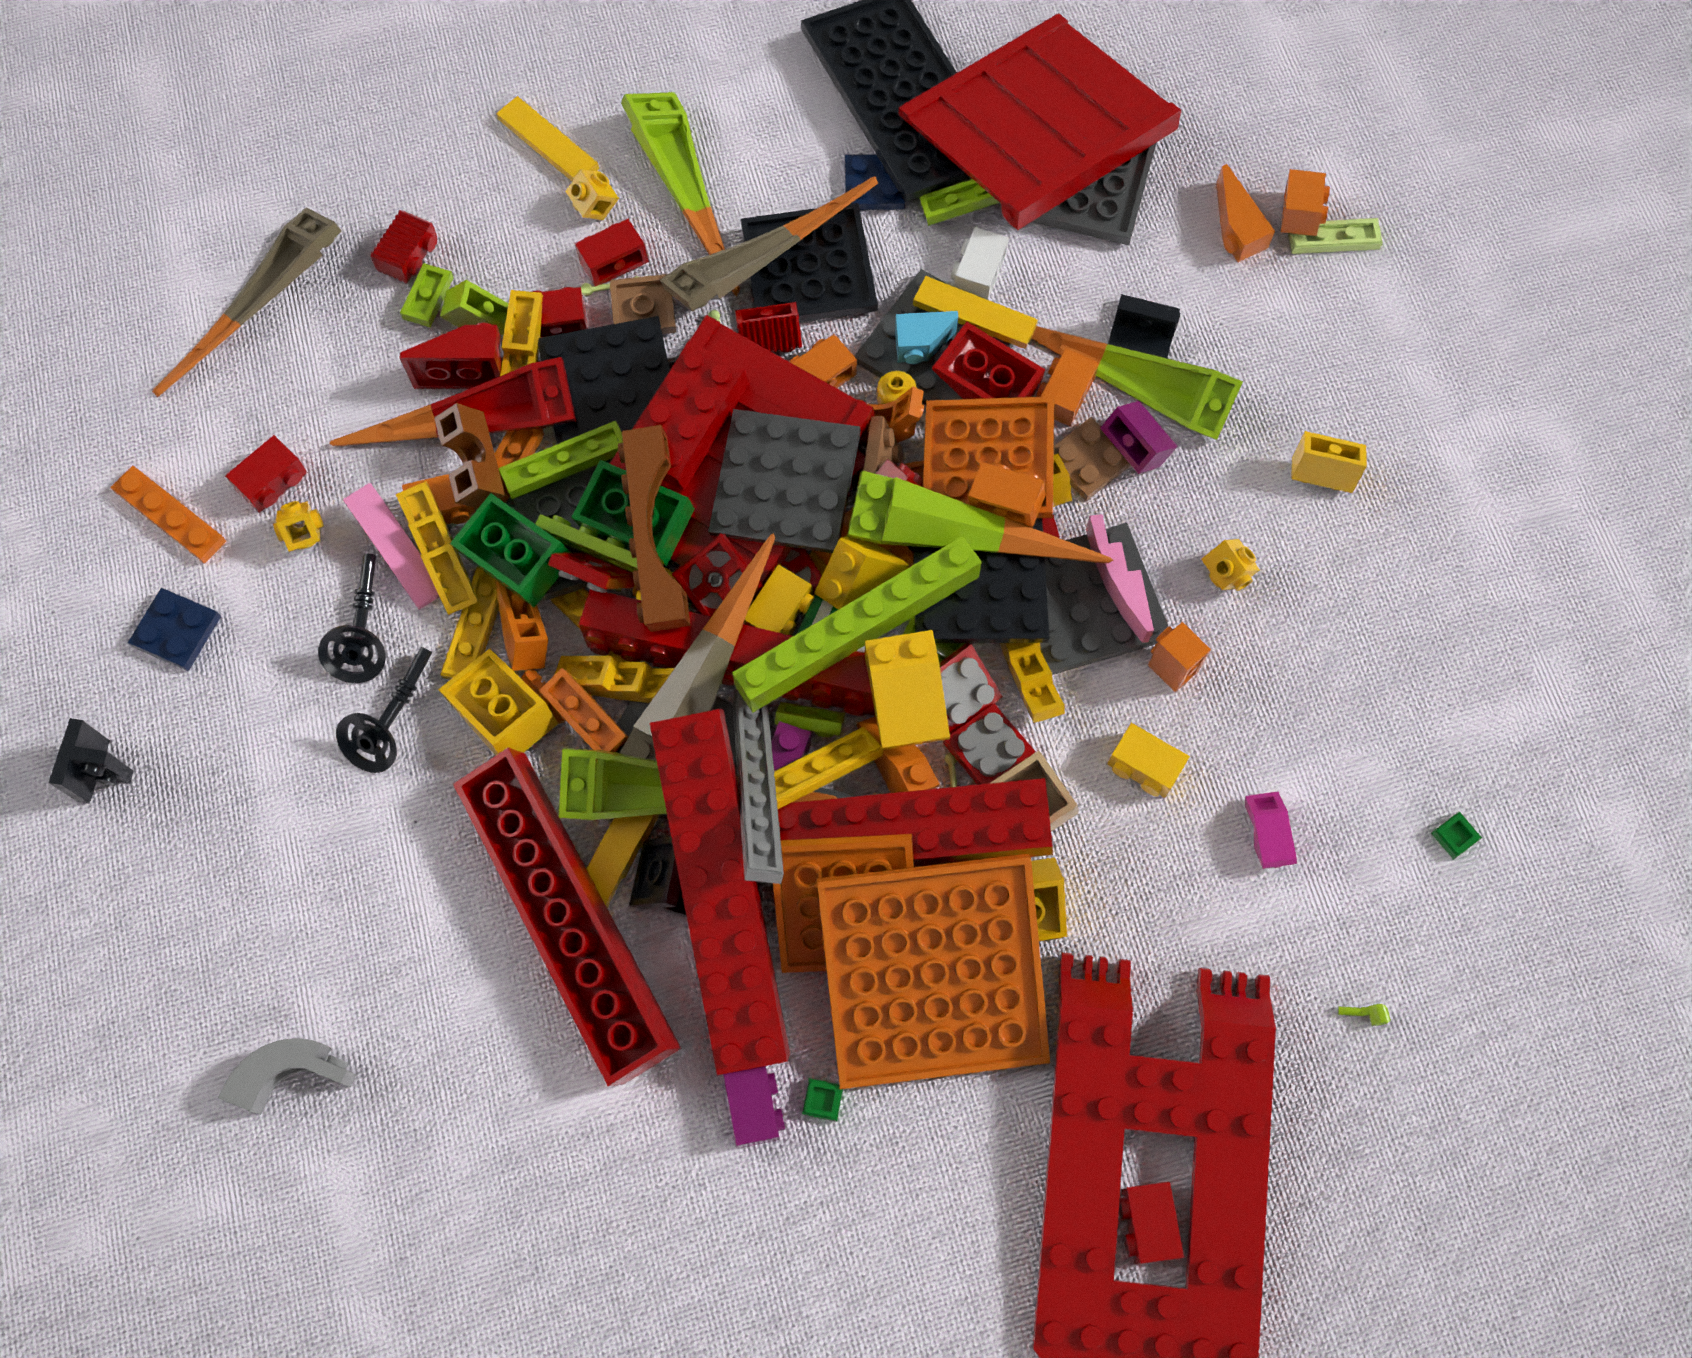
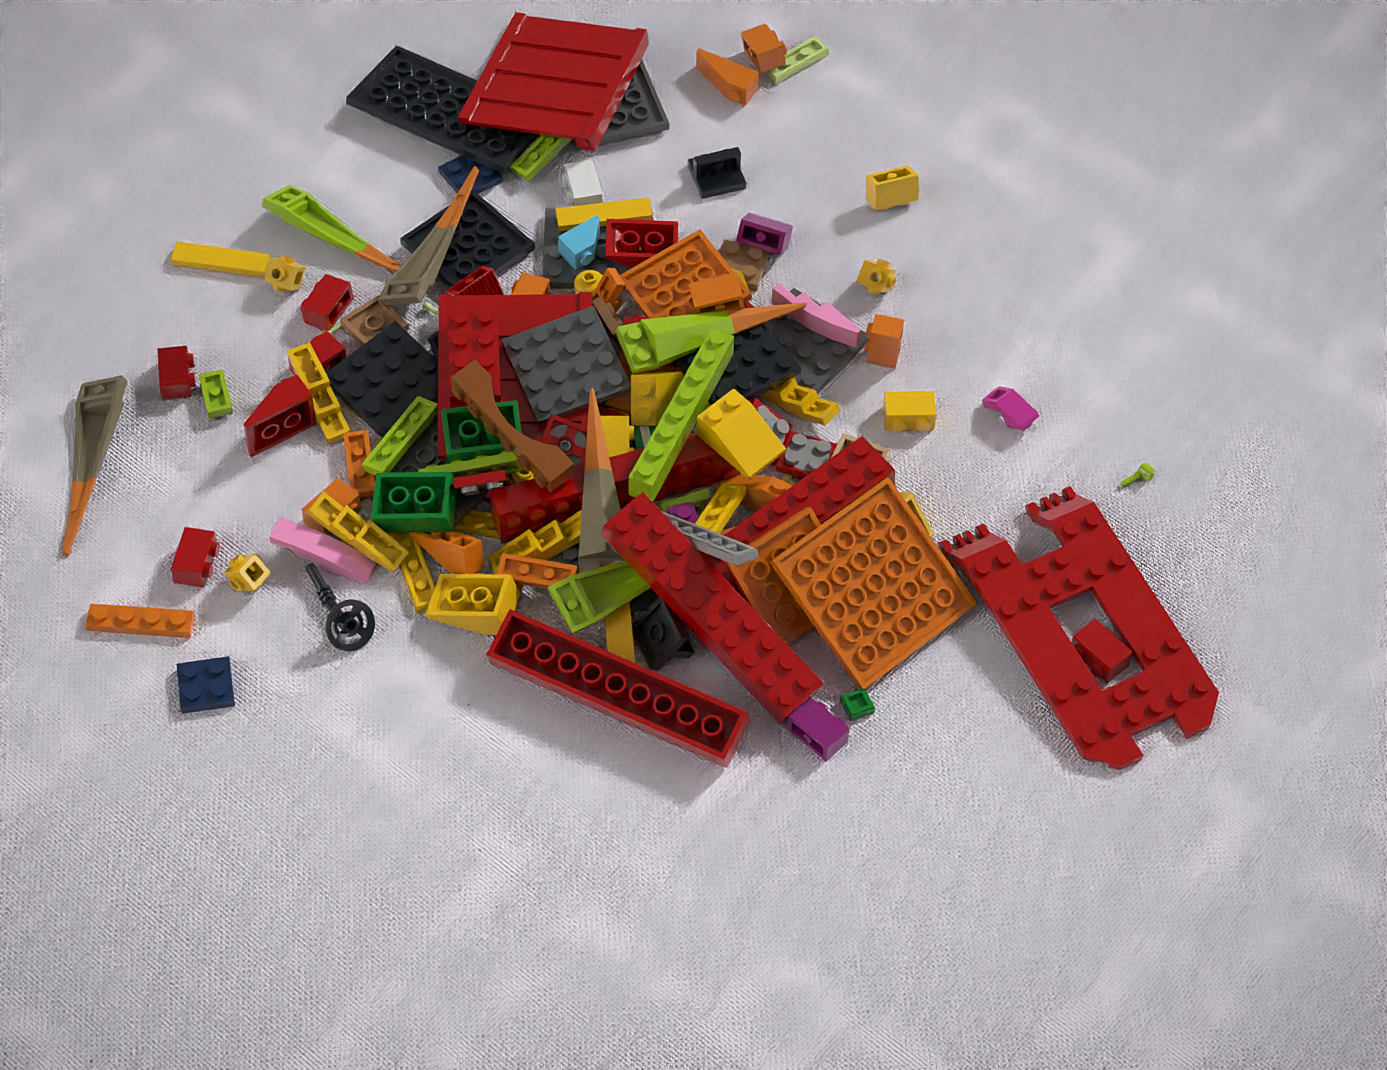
camera: 35 degrees left, 15 degrees down
(84, 762) = (224, 782): black bracket -> none
(262, 1070) = (499, 876): light grey arch -> none
(372, 735) = (403, 660): black dish -> none
(468, 435) = (333, 458): dark orange arch -> none
(473, 305) = (256, 382): lime slope -> none
(516, 401) = (340, 419): red plate -> none
(1068, 384) = (693, 218): orange brick -> none
(1181, 391) = (768, 195): lime plate -> none
(1456, 835) = (1119, 354): green tile -> none

